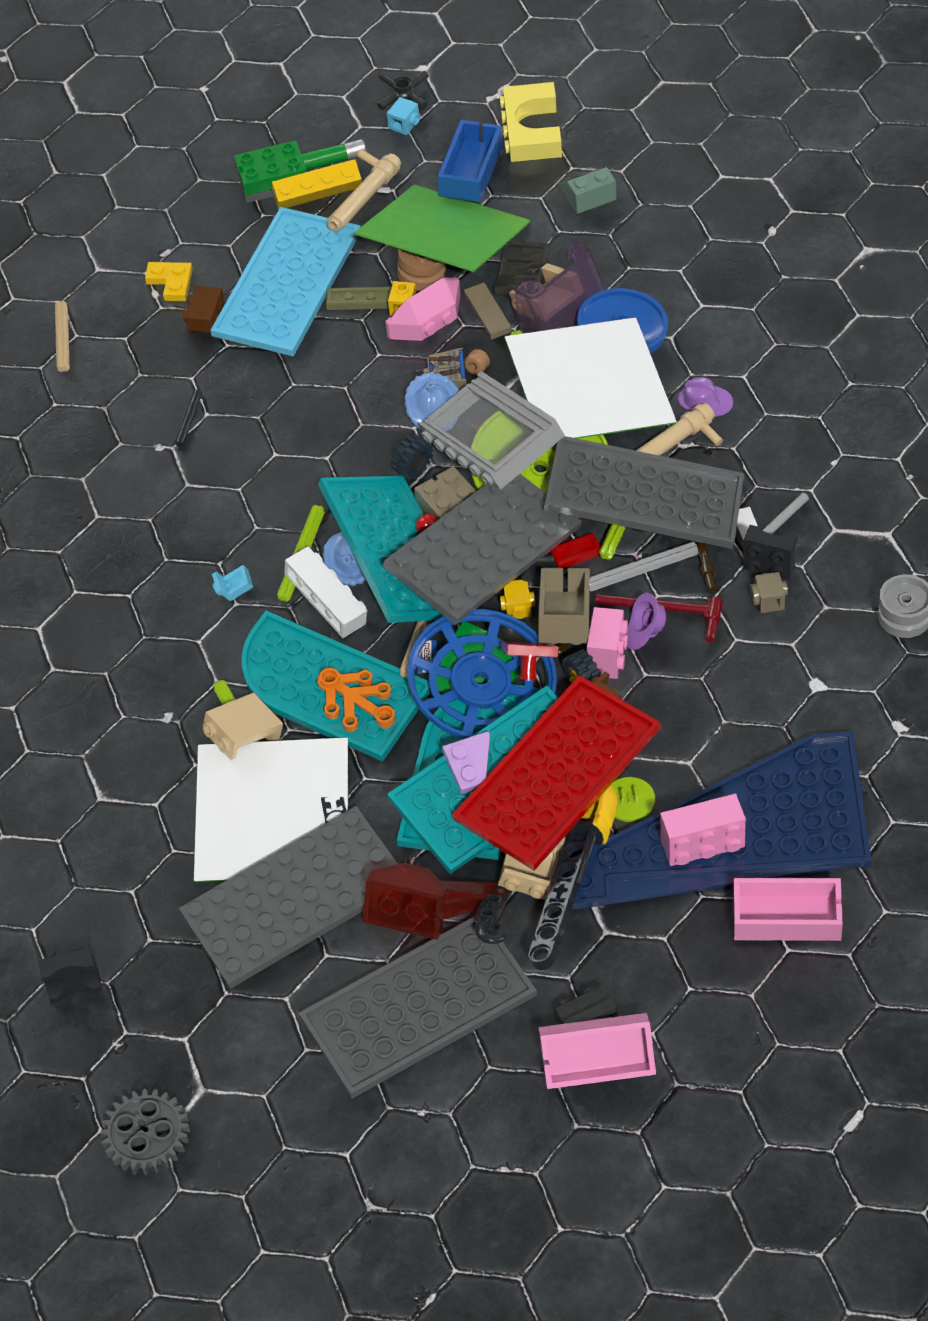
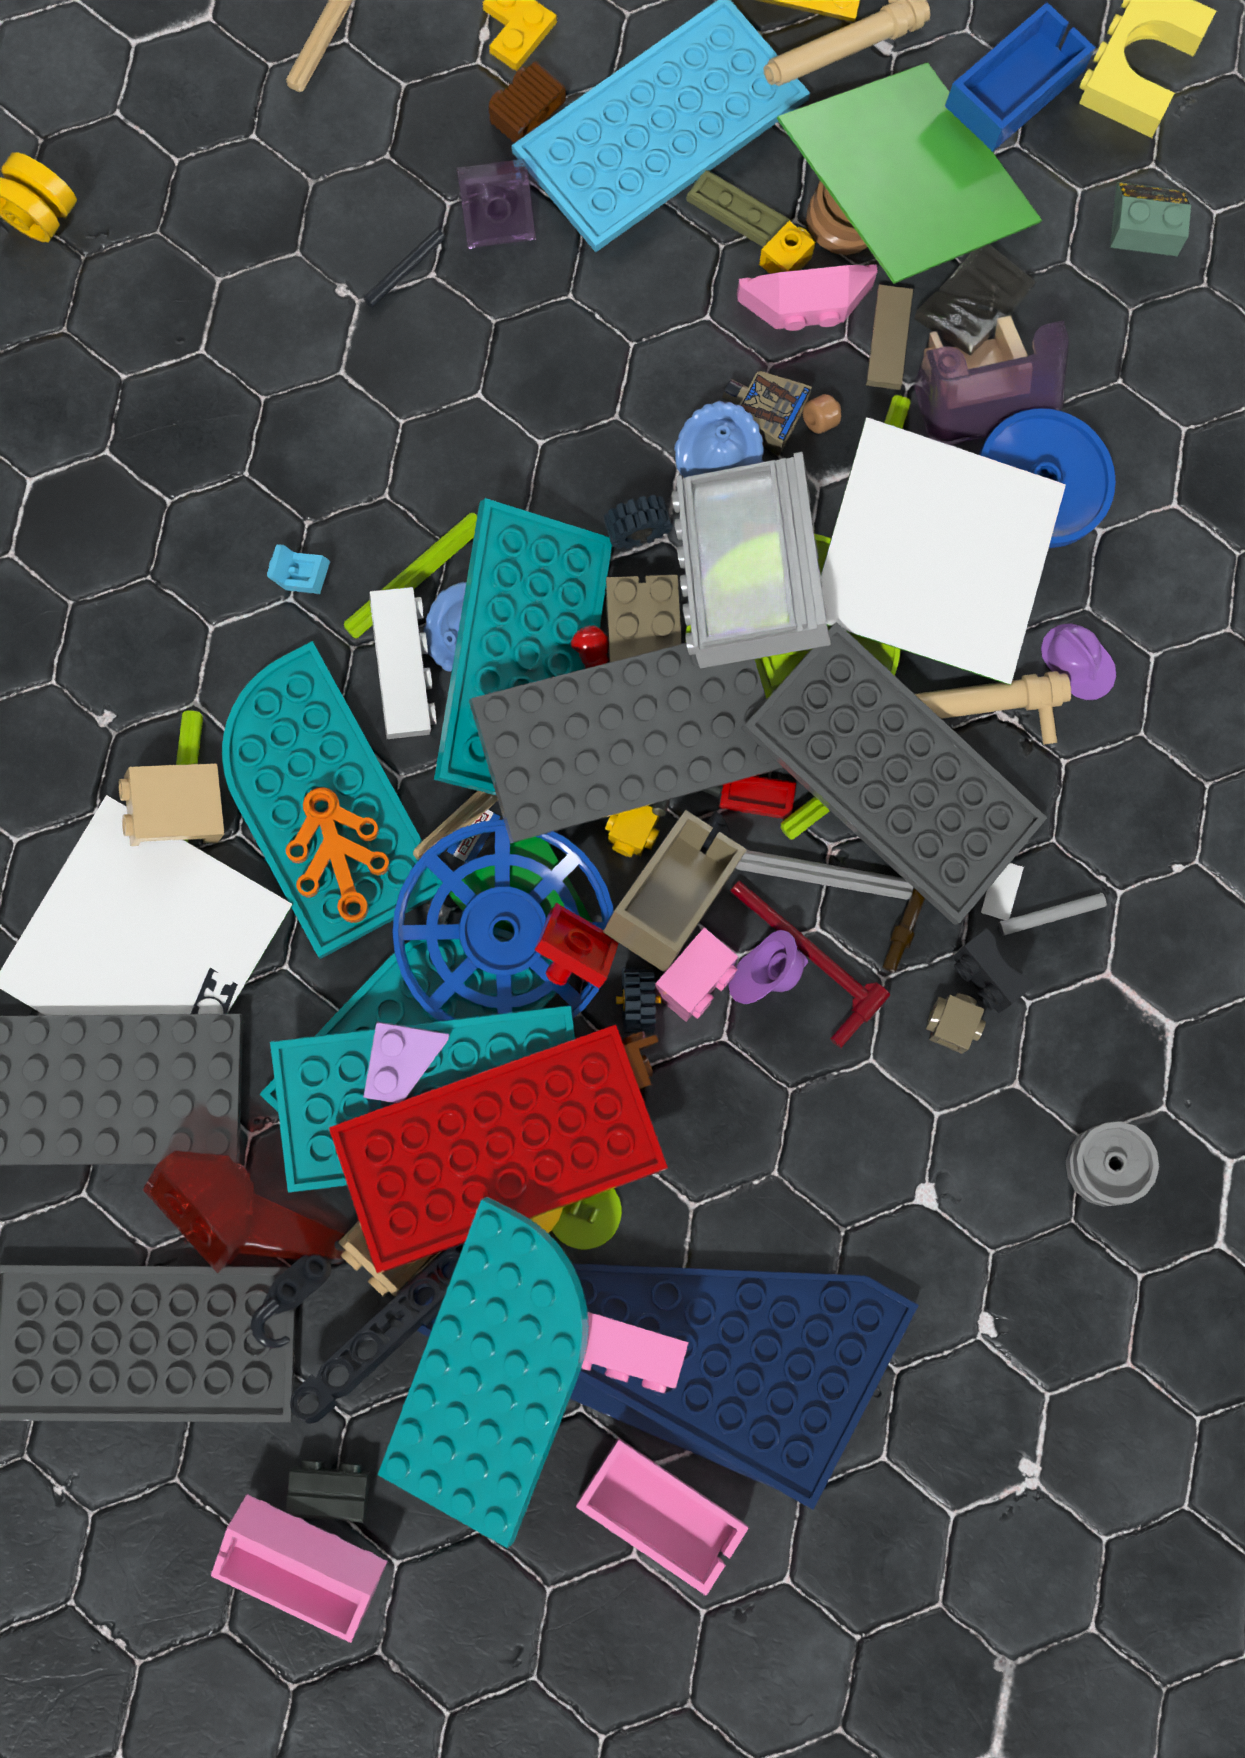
camera: 20 degrees right, 25 degrees up
(221, 360) = (496, 203): none -> clear purple slope
(638, 883) = (492, 1376): none -> teal plate

